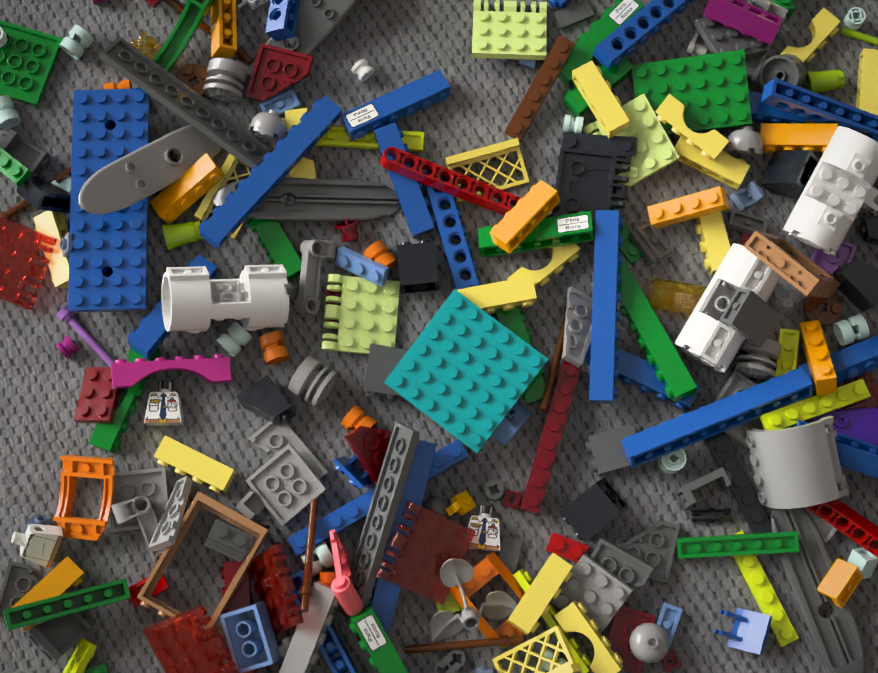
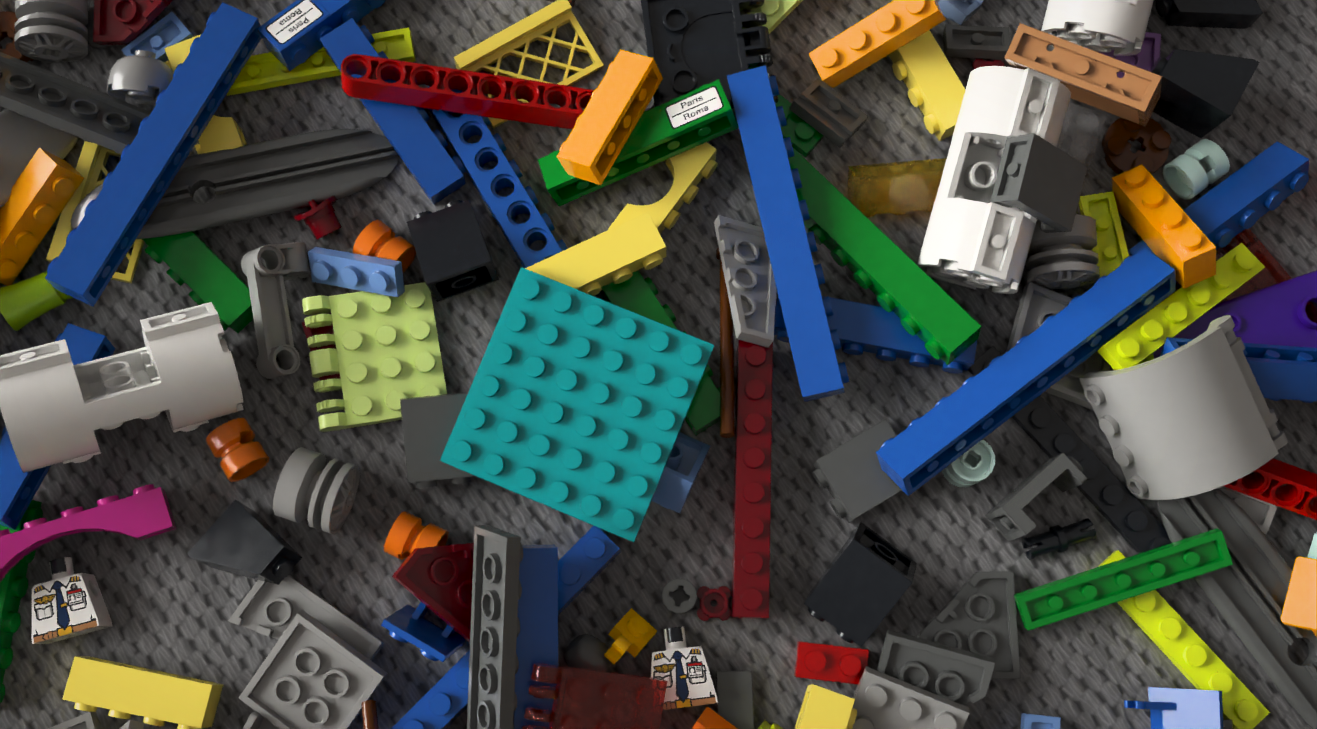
camera: 15 degrees left, 0 degrees up
(235, 337) = (164, 453): light aqua wheel -> none

